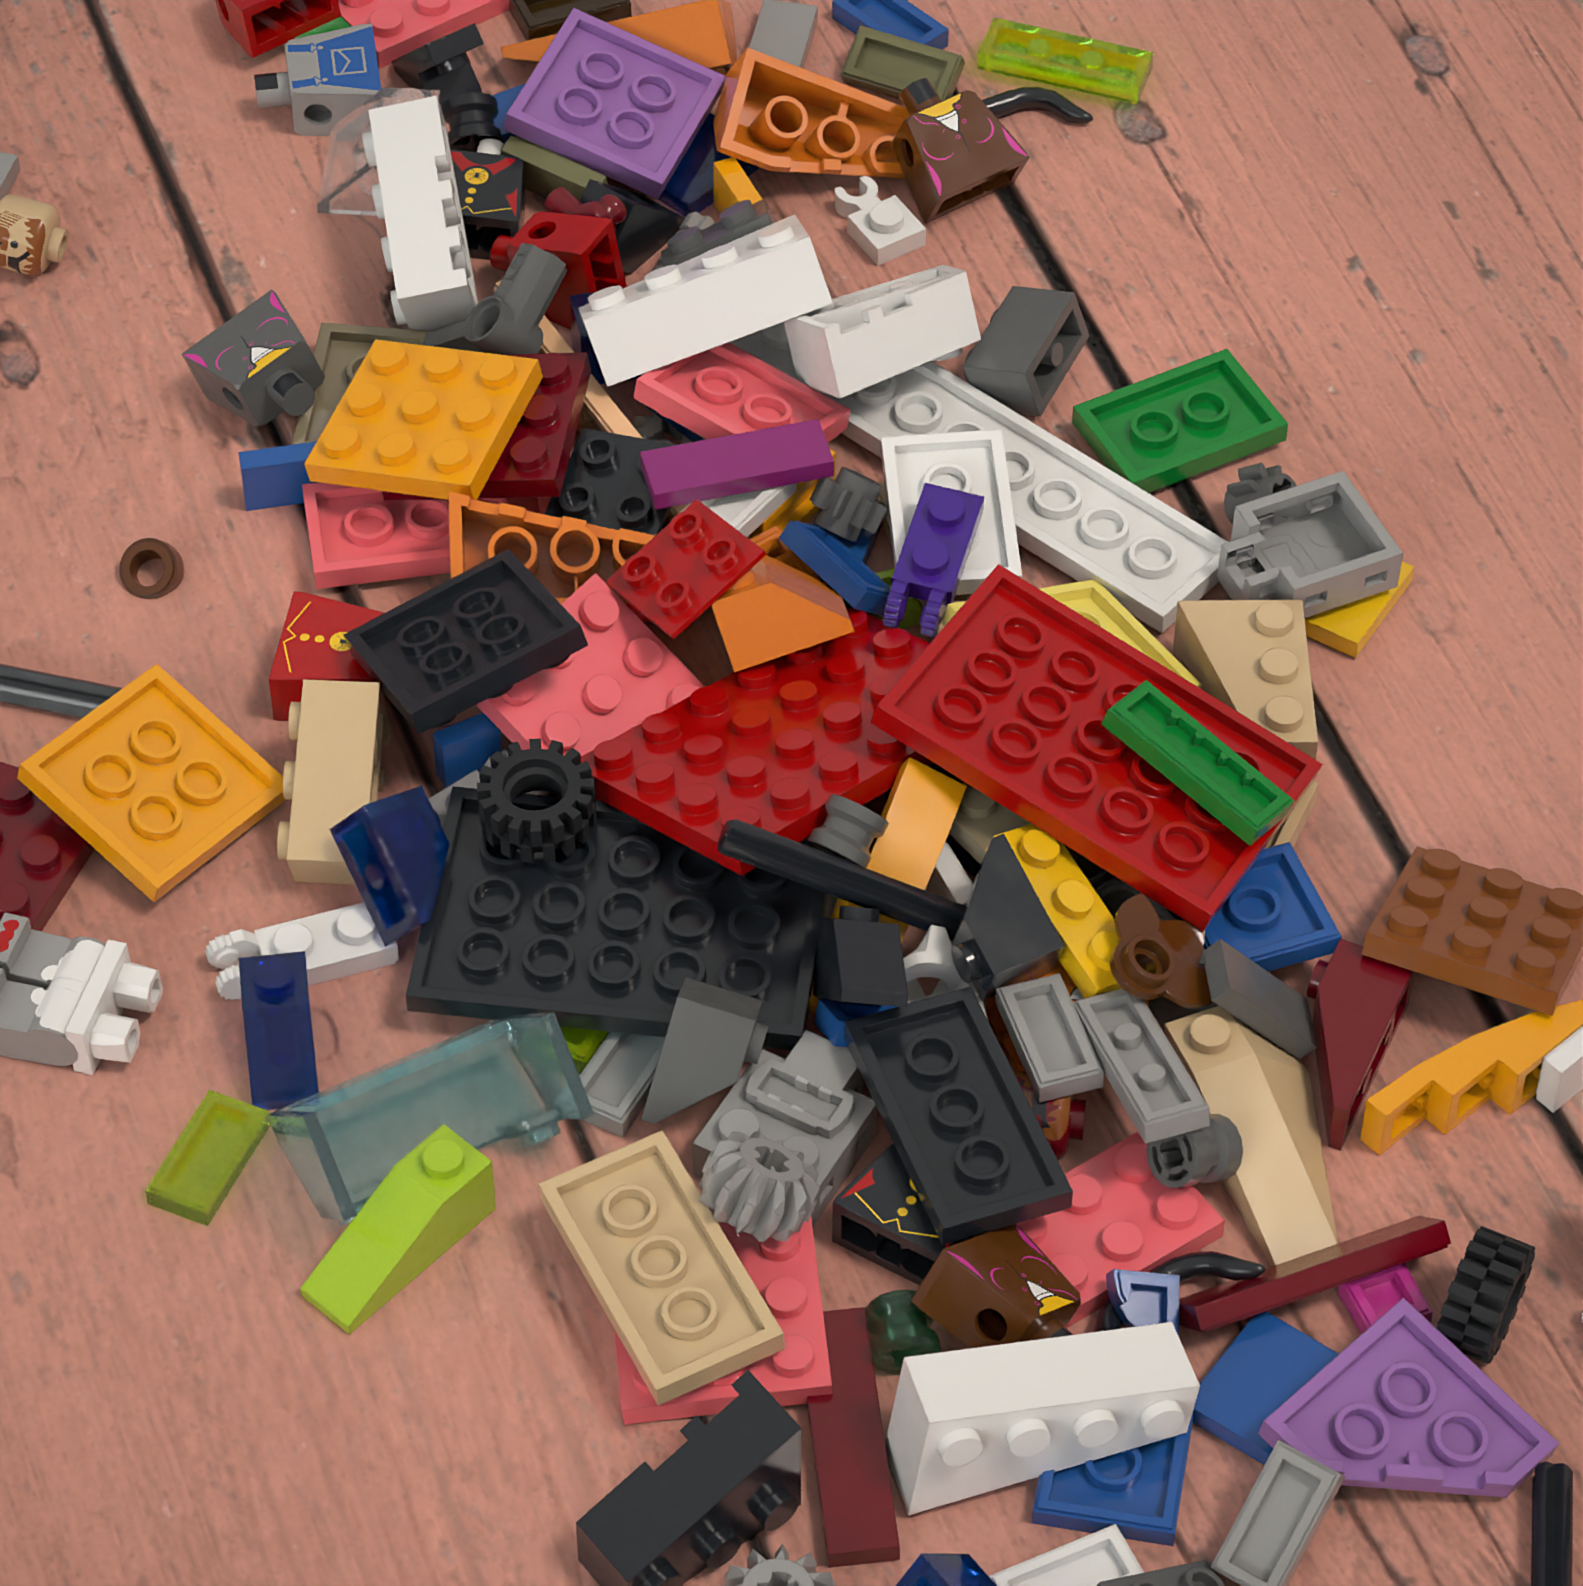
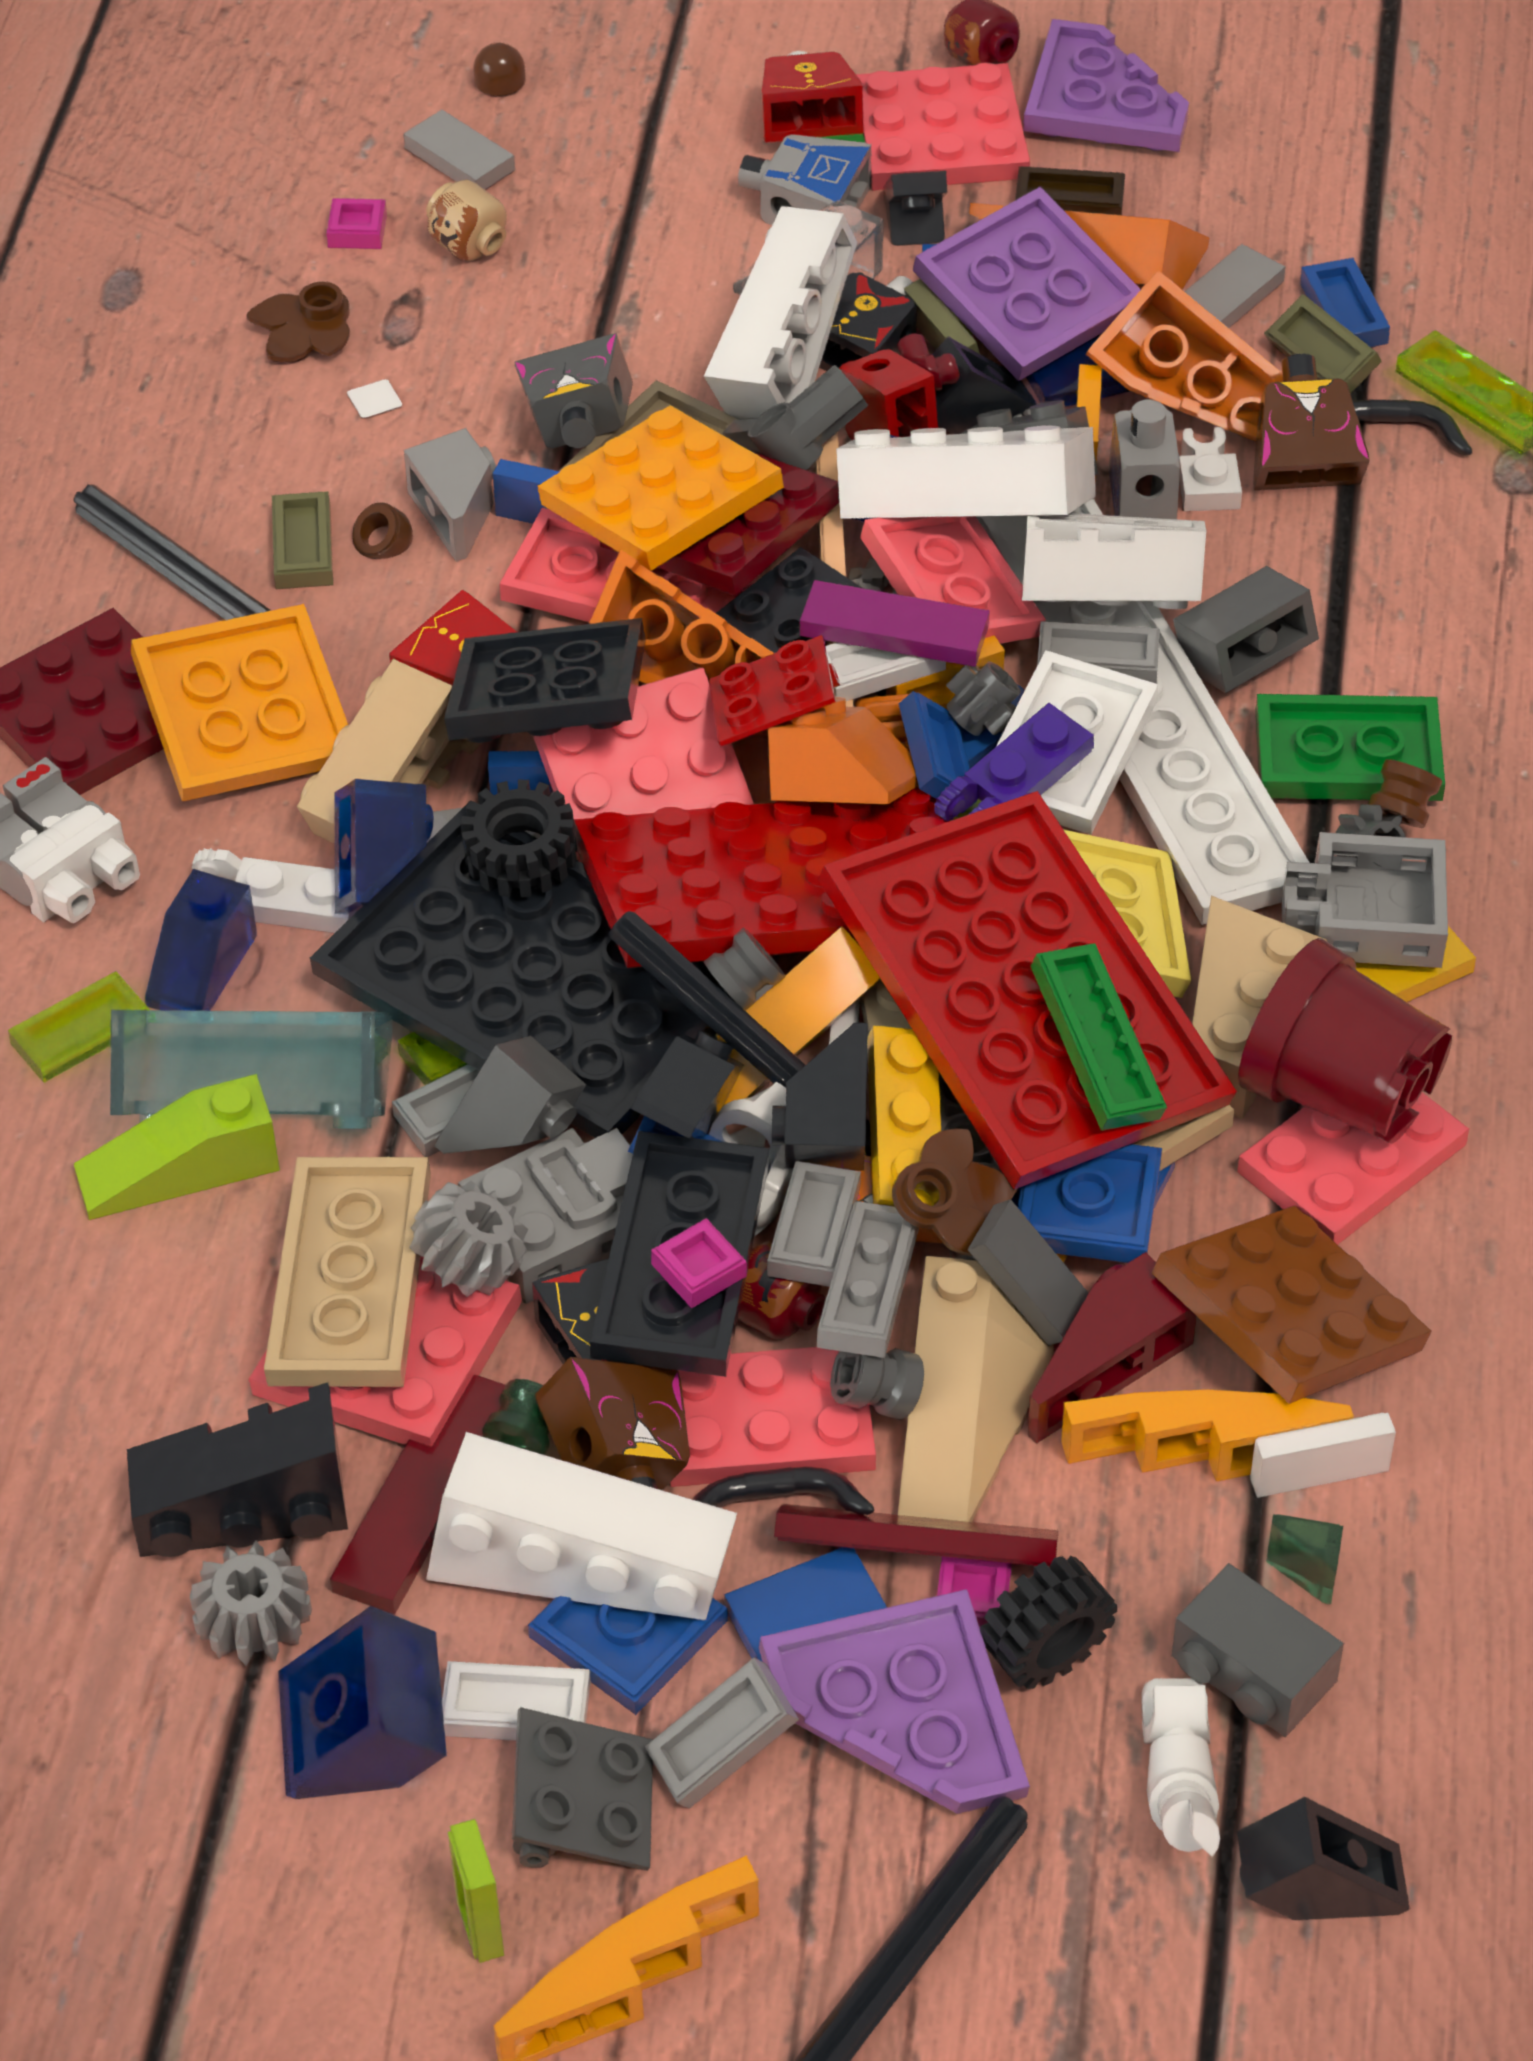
camera: 30 degrees right, 0 degrees up
(45, 443) = (374, 398): none -> white sticker
(79, 606) = (302, 540): none -> olive tile
(196, 500) = (452, 487): none -> light grey slope
(471, 119) = (897, 255): black wheel -> none
(843, 233) = (1143, 446): none -> light grey torso
(928, 411) = (1112, 647): none -> light grey tile
(991, 1114) = (699, 1263): none -> dark pink tile
(1144, 1297) = (752, 1493): tile -> none
(1267, 441) = (1406, 792): none -> reddish brown wheel
(1397, 685) = (1343, 1045): none -> dark red piece
(1425, 776) = (1343, 1172): none -> coral plate

